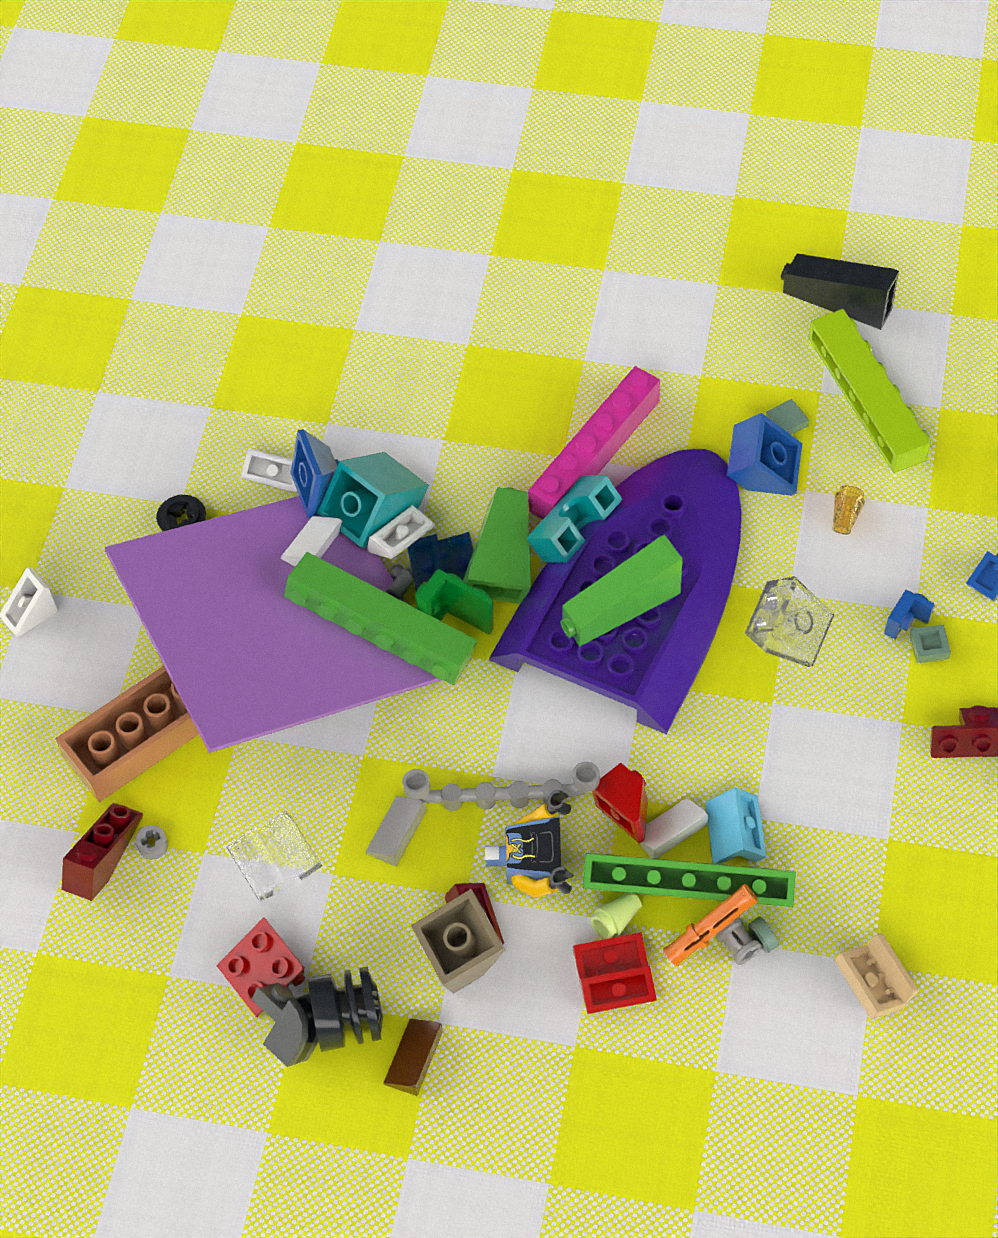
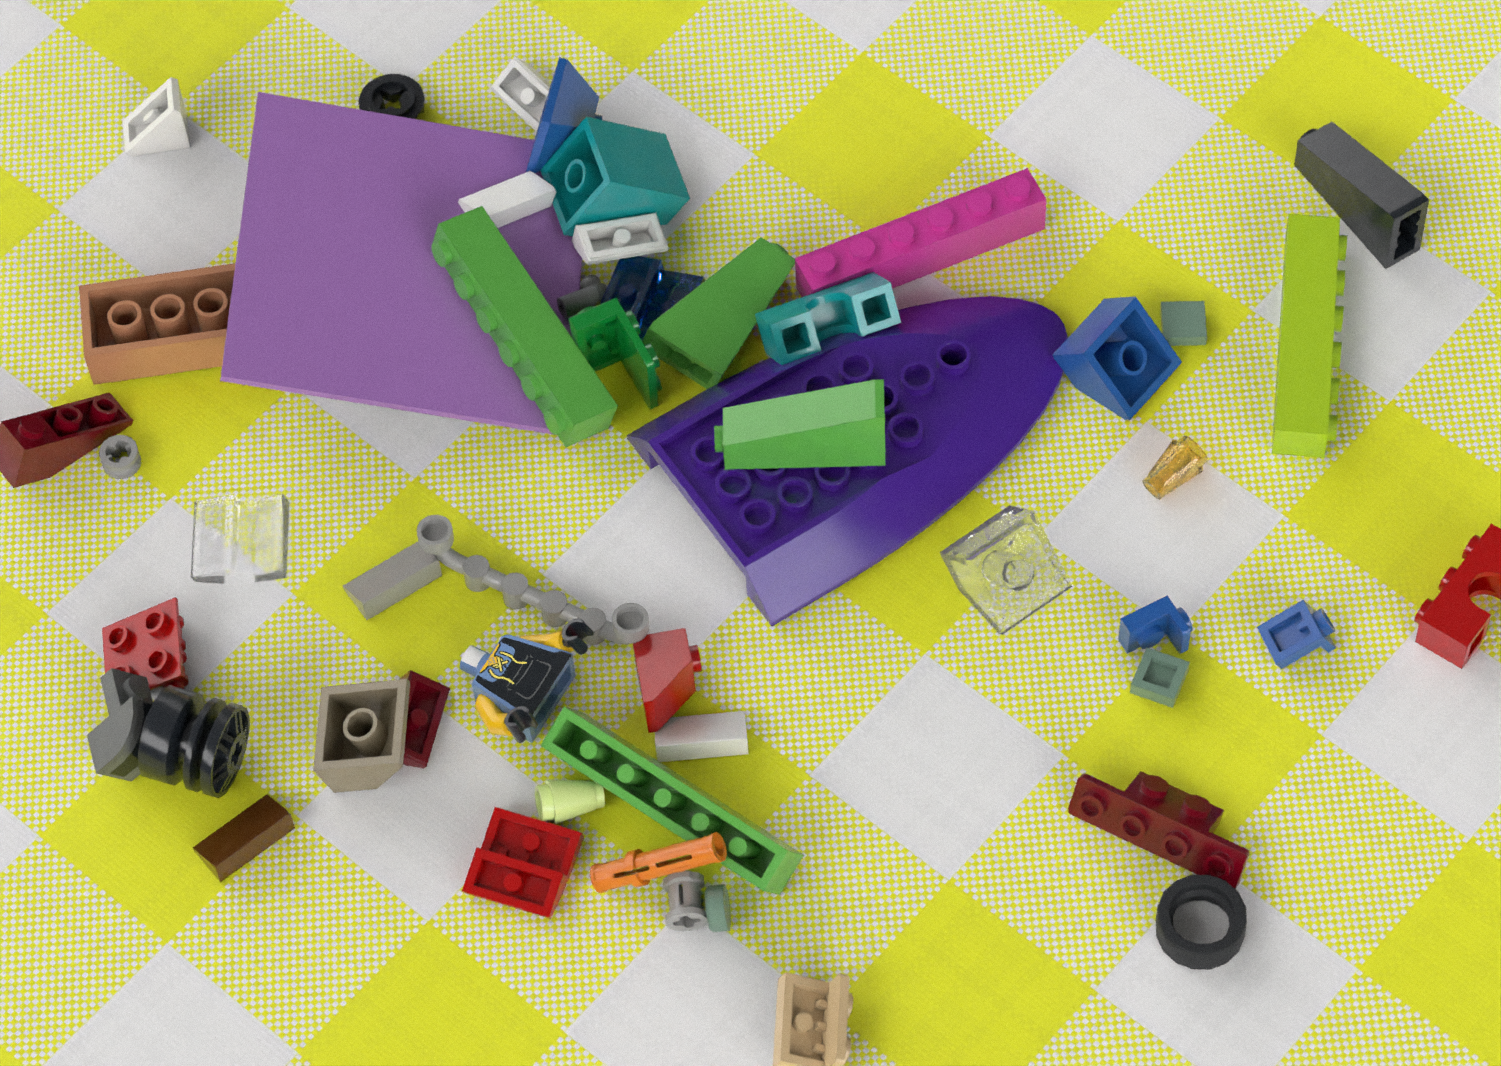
camera: 30 degrees right, 0 degrees up
(735, 826) = (776, 771): medium azure panel -> none

